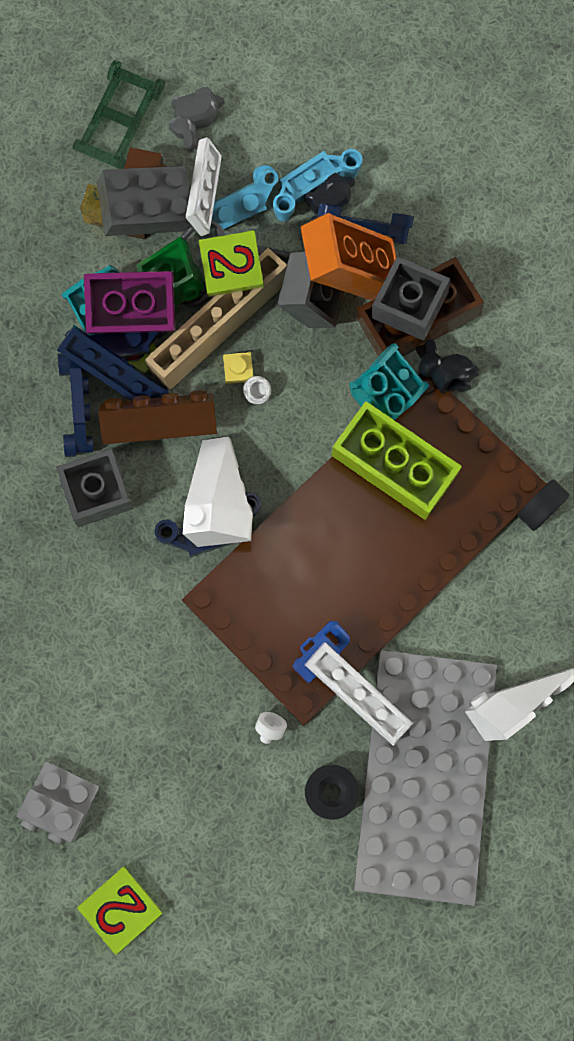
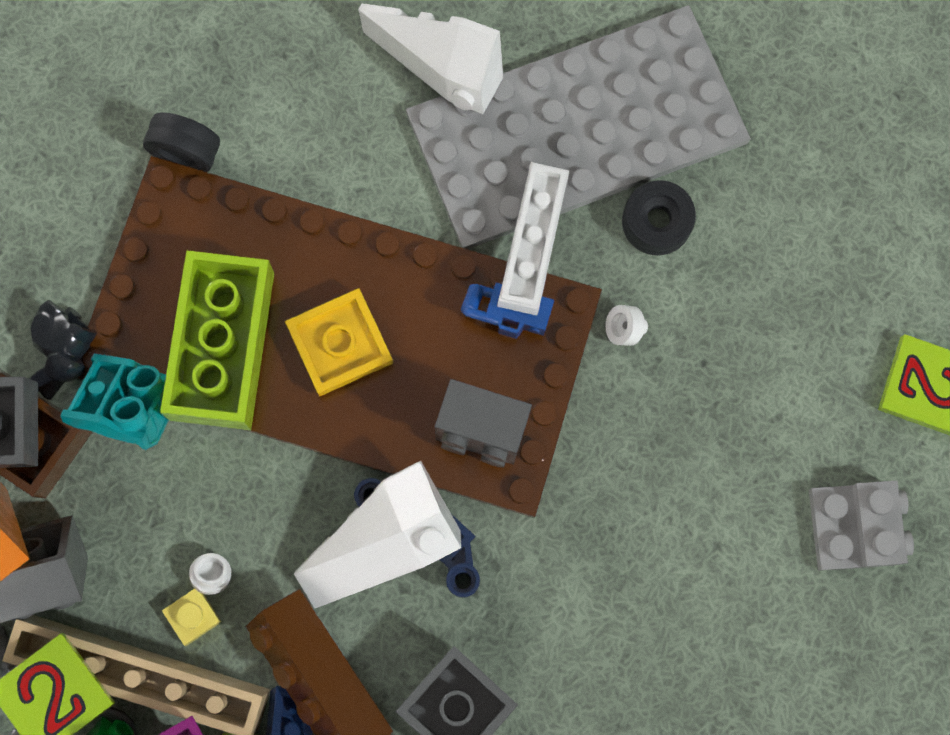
camera: 120 degrees left, 0 degrees up
(253, 590) = (481, 423): none -> dark grey brick
(357, 535) = (339, 342): none -> yellow plate

